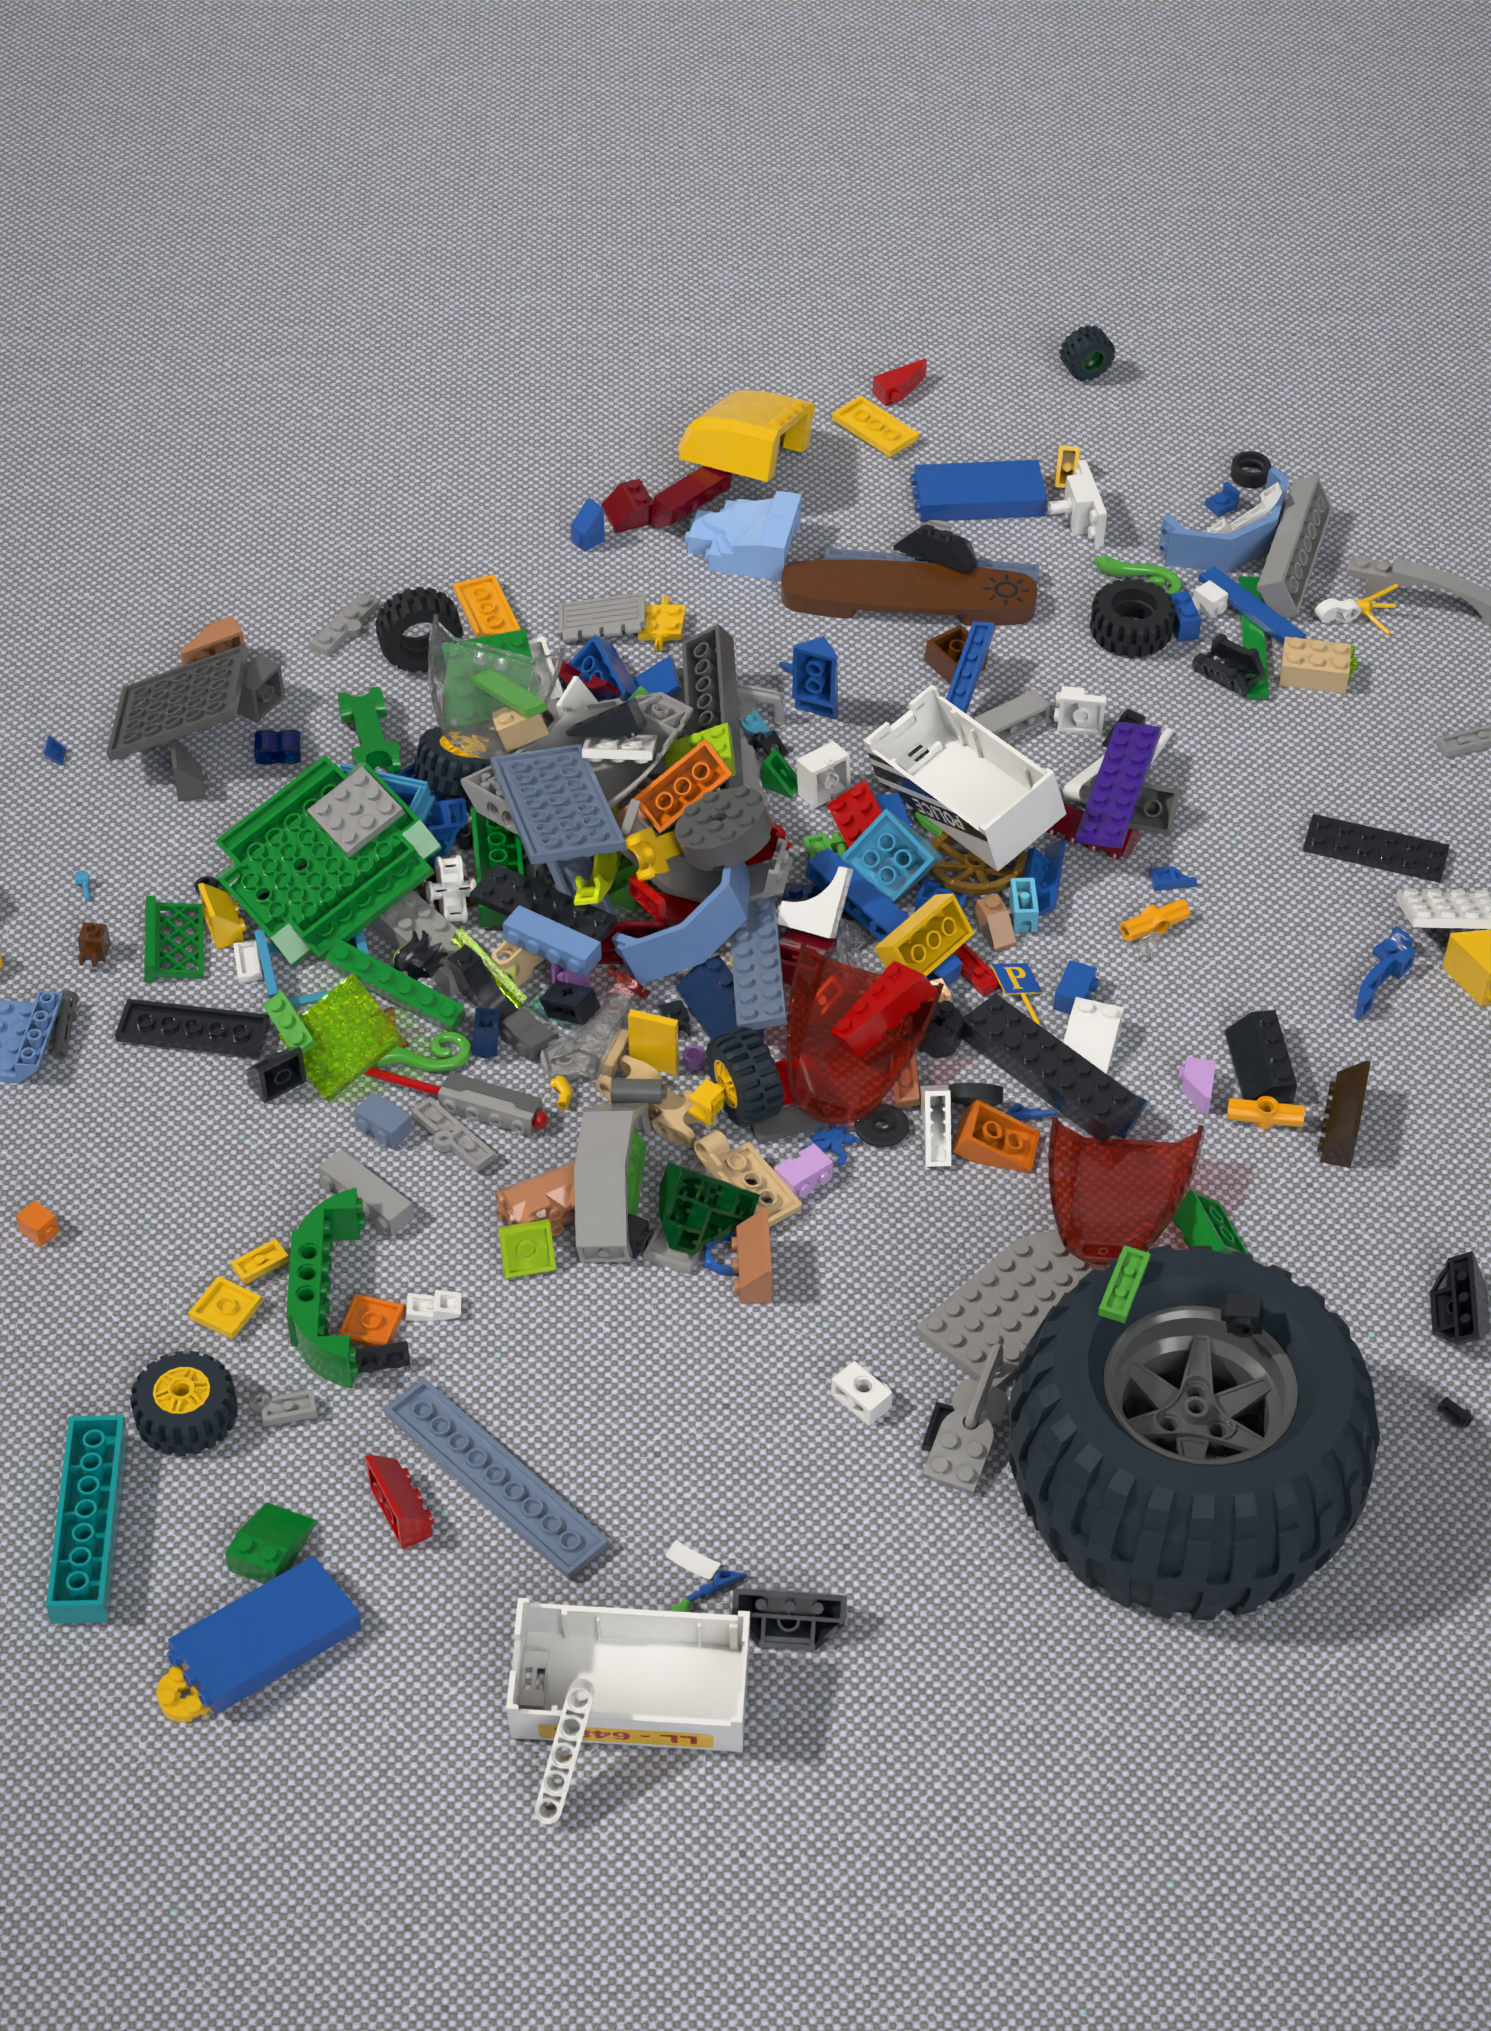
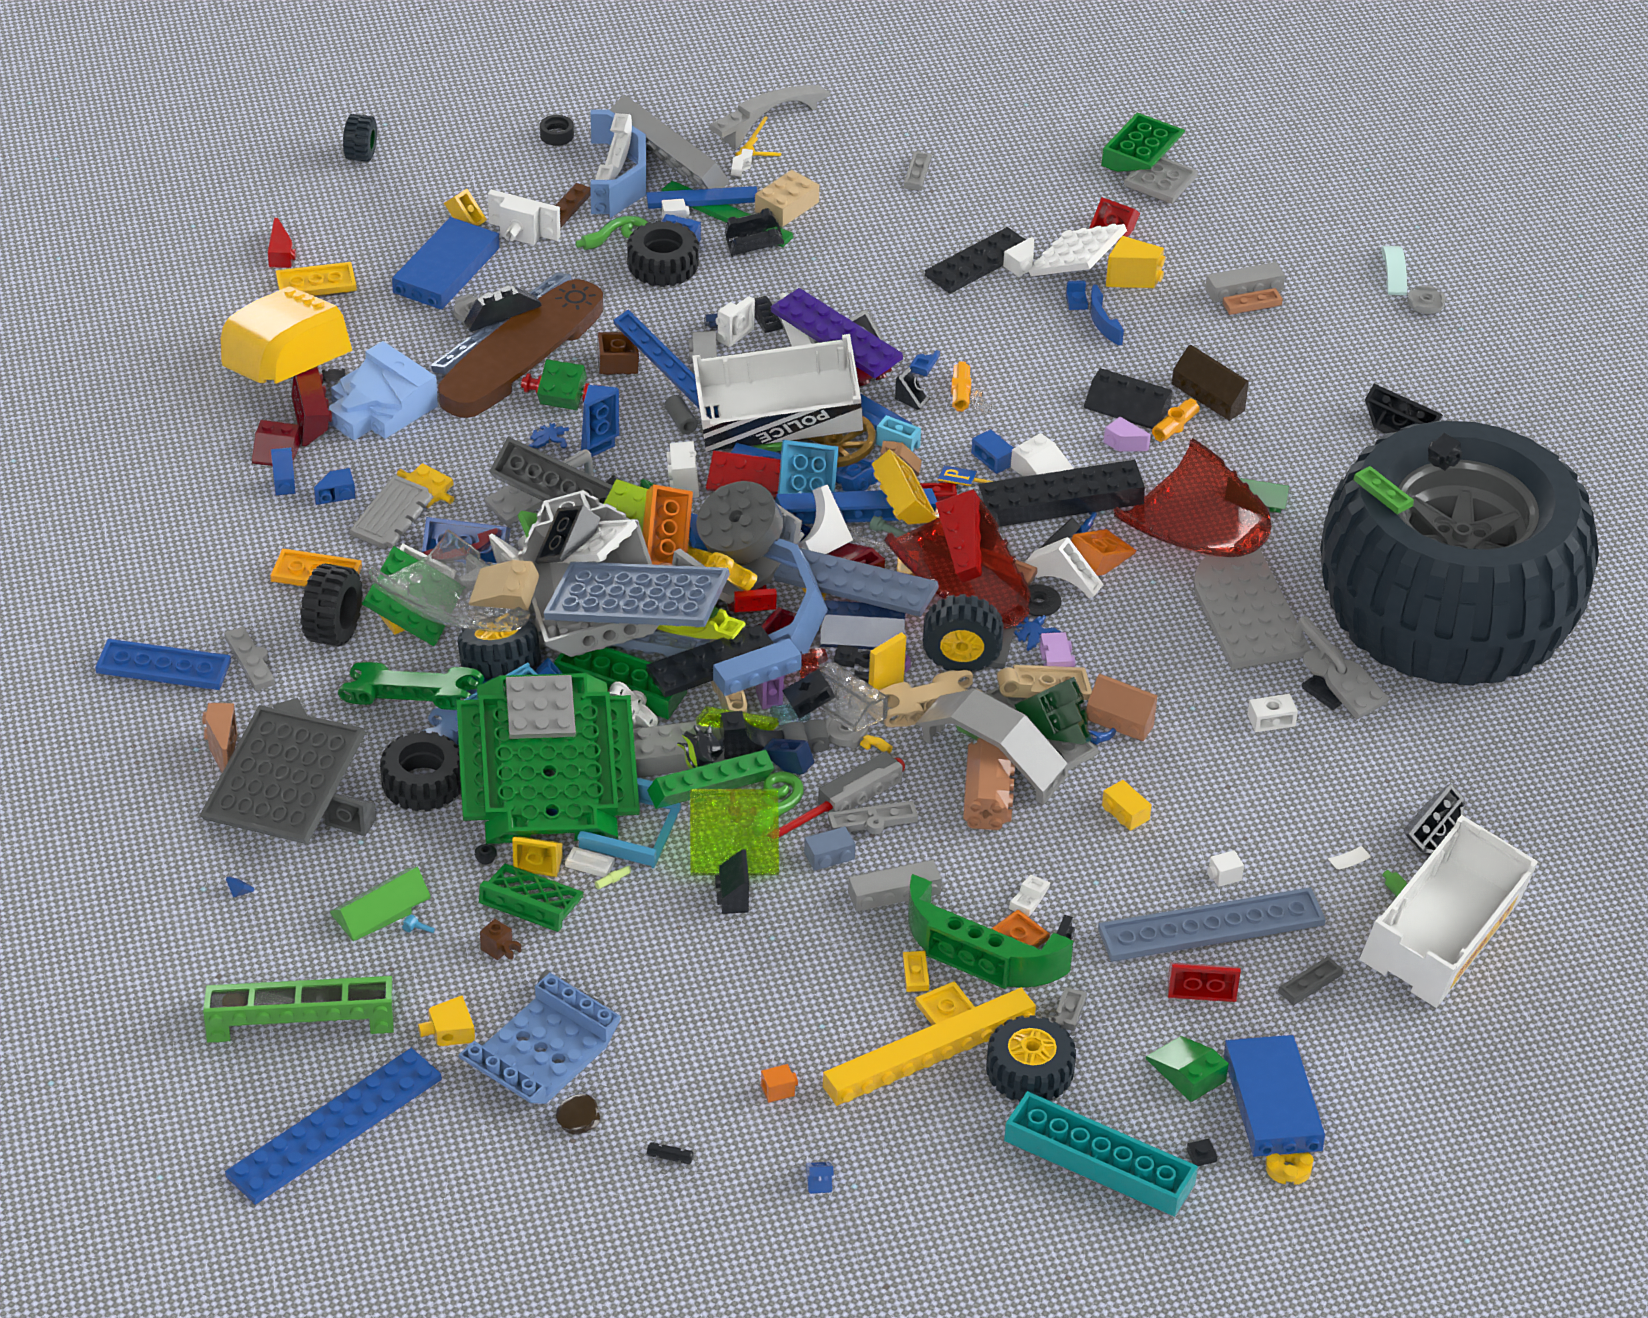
camera: 60 degrees left, 5 degrees down
(89, 848) = (382, 904): none -> bright green slope
(156, 1609) = (1202, 1152): none -> black plate
(161, 1317) = (924, 1047): none -> yellow brick
(193, 1028) = (639, 919): black plate -> none
(240, 986) = (612, 877): none -> yellowish green piece
(255, 775) = (421, 790): none -> black tyre
(277, 747) = (369, 750): clear blue brick -> none
(289, 1022) = (692, 856): bright green plate -> none
(292, 577) = (163, 664): none -> blue plate
(474, 1602) = (1310, 980): none -> dark grey tile
(509, 693) = (485, 572): bright green tile -> none
(527, 1248) = (1024, 818): lime tile -> none
(560, 1763) = (1493, 964): white beam -> none
(585, 1452) = (1225, 868): none -> white brick
(605, 568) = (335, 487): none -> blue slope
(619, 1327) = (1126, 805): none -> yellow brick
(638, 1091) = (925, 696): dark grey brick -> none
(660, 678) = (500, 510): blue tile -> none
(707, 1101) = (966, 665): yellow window -> none
(717, 1584) = (1378, 853): blue hand -> none
(756, 494) = (333, 374): none -> black piece
(873, 643) = (559, 385): none -> green brick
(1114, 884) = (909, 390): none -> black slope
(1137, 529) = (572, 201): none -> reddish brown plate
(1223, 501) = (575, 157): blue bracket -> none
(1411, 874) = (1020, 257): none -> white slope

